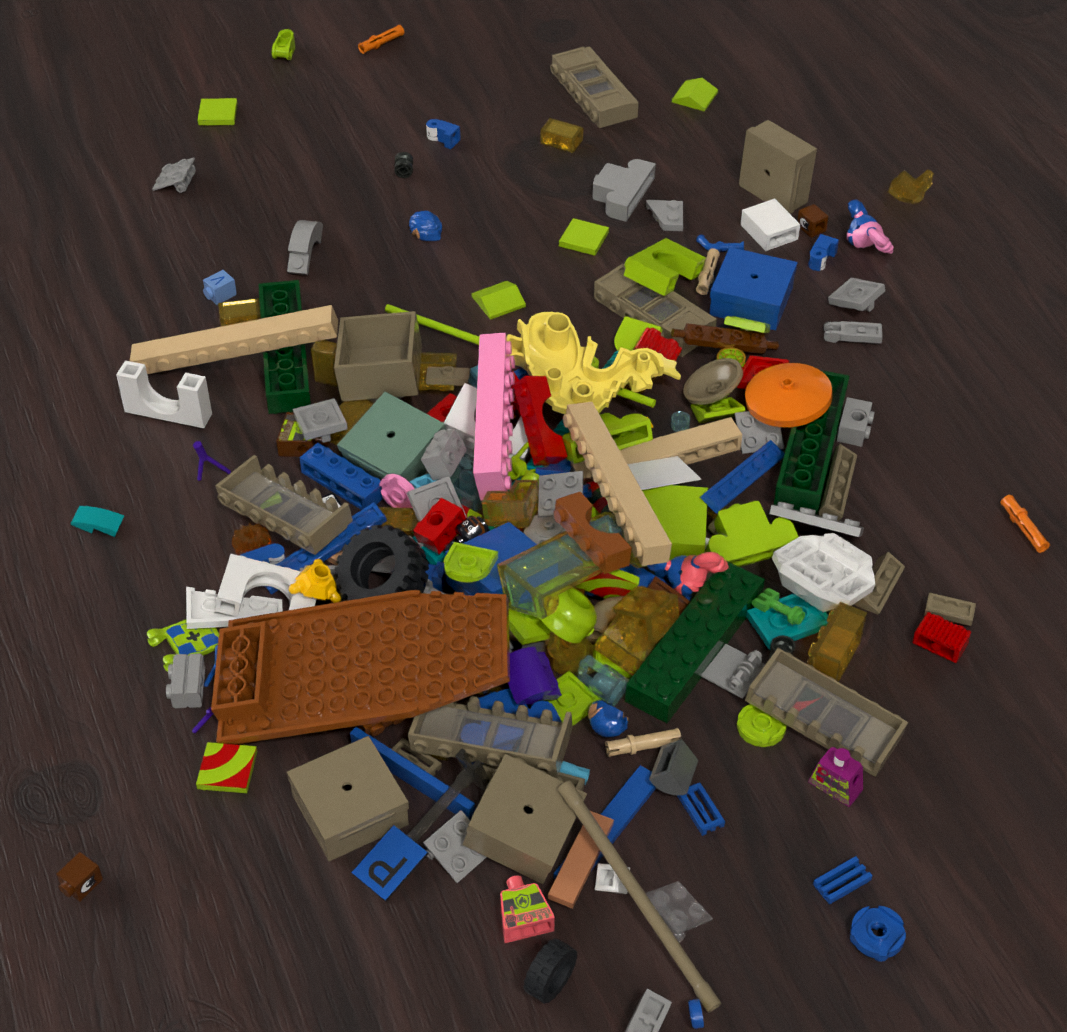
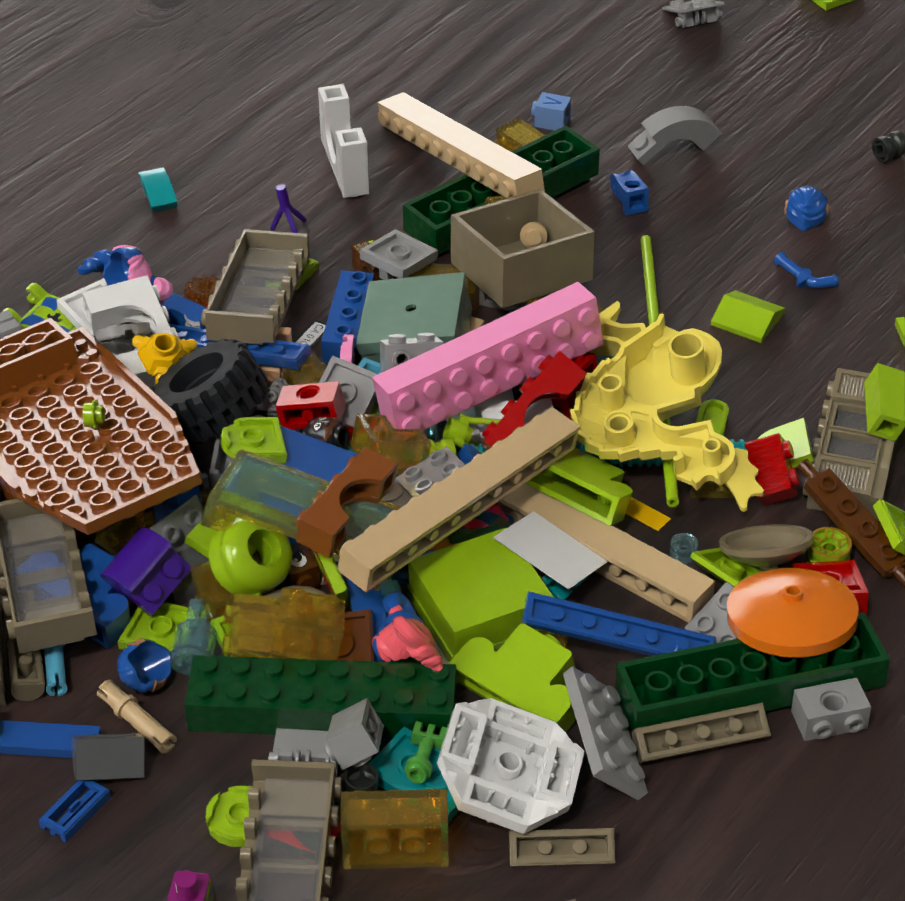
camera: 60 degrees right, 5 degrees down
(184, 571) = (124, 264): none -> blue hair
(271, 595) = (123, 332): none -> light grey tile
(337, 290) = (630, 191): none -> blue leg
(360, 347) = (533, 234): none -> tan plate
(378, 635) = (93, 414): none -> lime plate
(484, 258) = (804, 275): none -> blue piece
(754, 630) = (354, 735): none -> light grey brick

